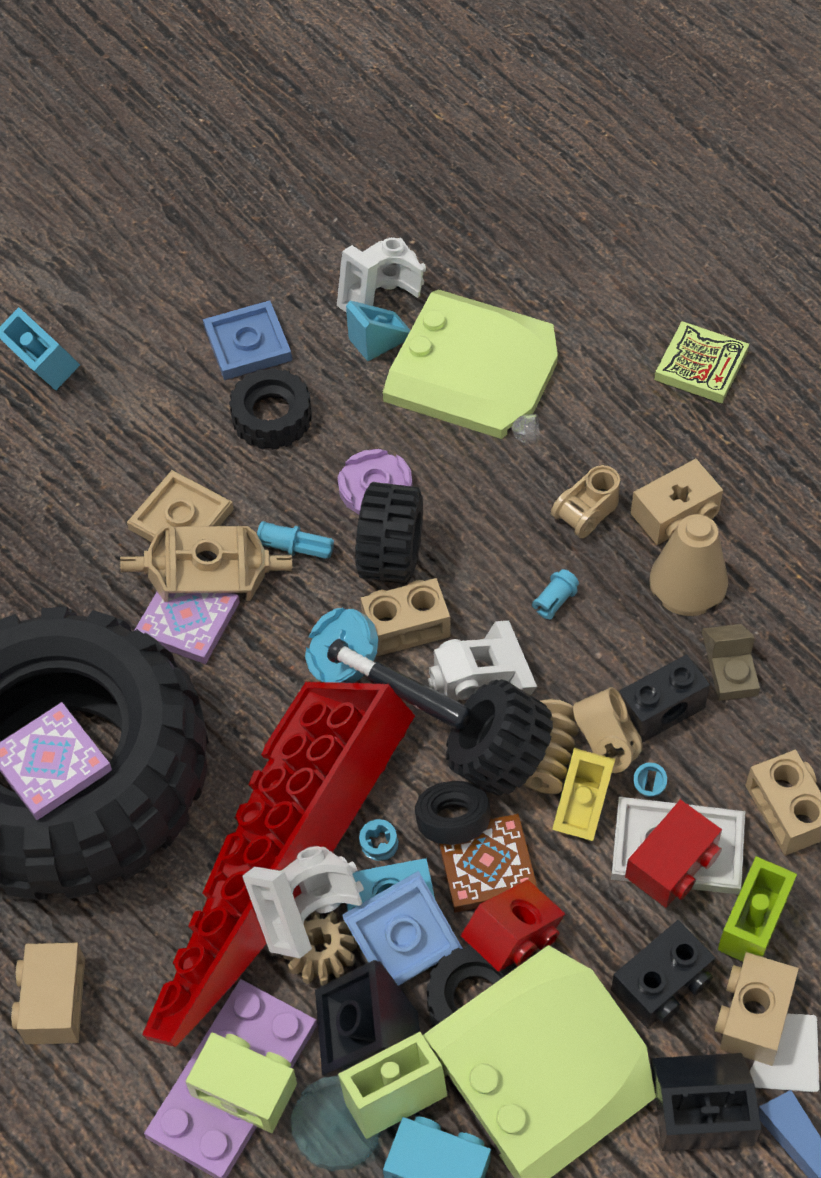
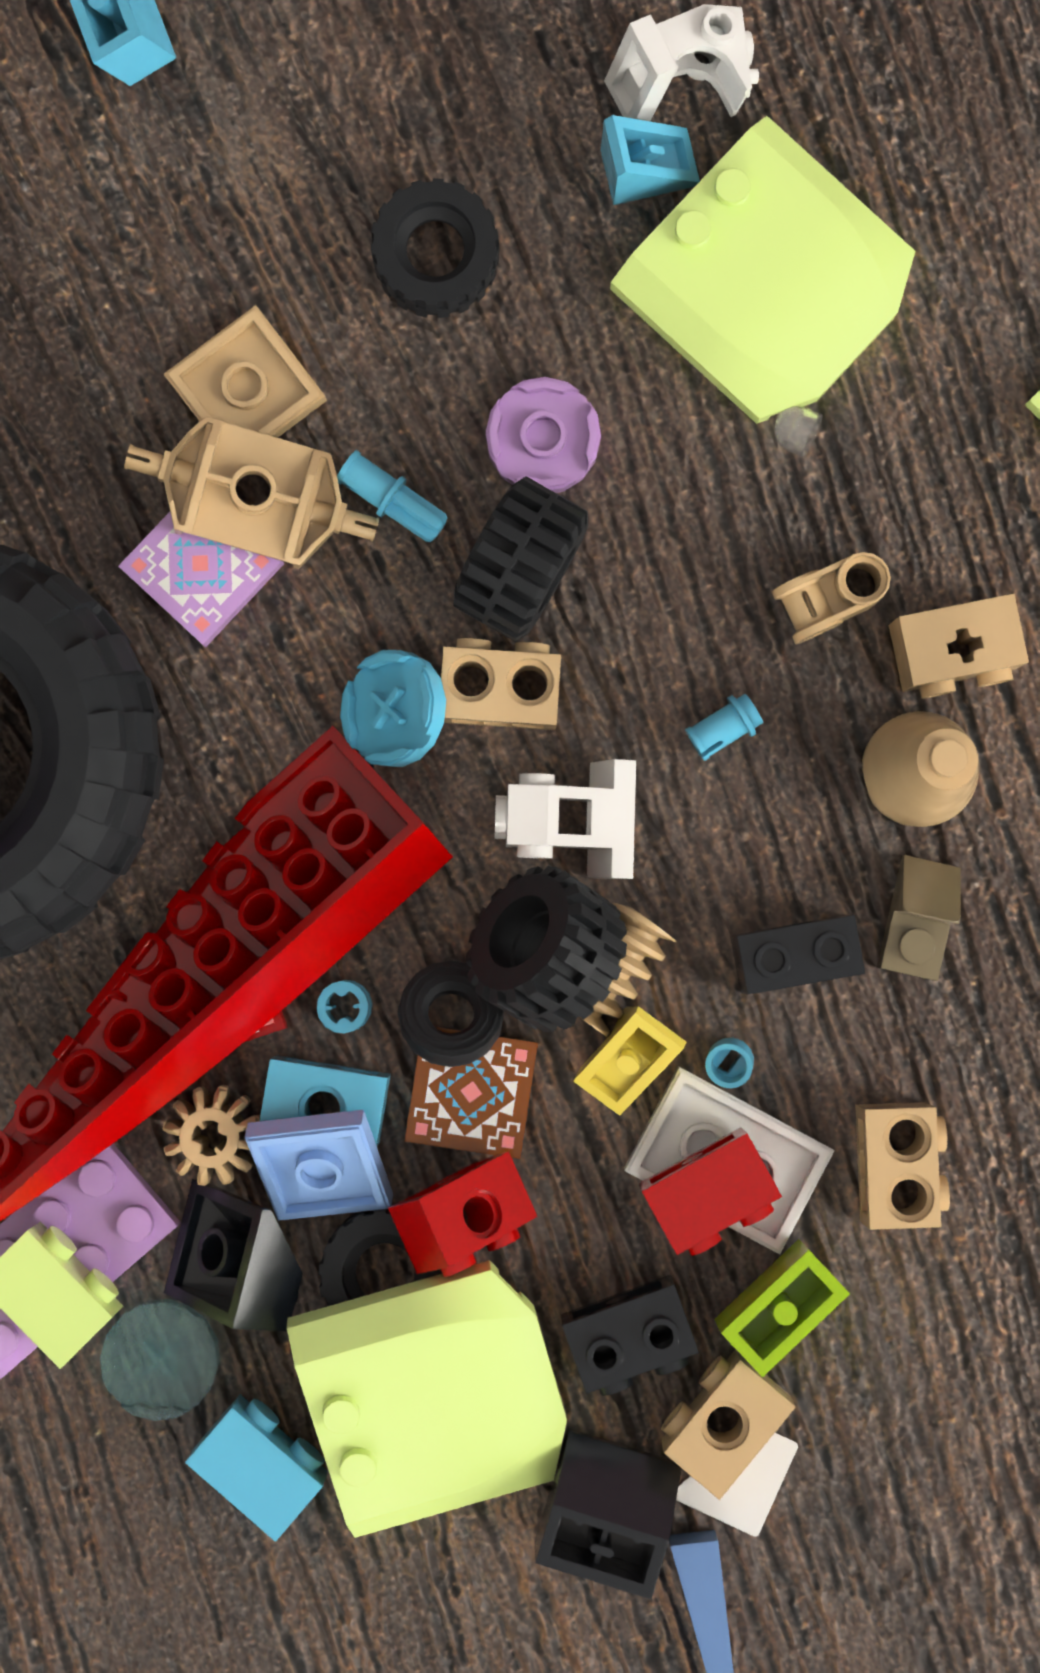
camera: 15 degrees right, 30 degrees up
(247, 340) = (444, 98): medium blue tile -> none
(324, 885) = (196, 1079): white tile -> none
(393, 1084) = (230, 1369): yellowish green brick -> none
(419, 695) = (456, 841): black piece -> none
(608, 725) = (700, 982): tan piece -> none

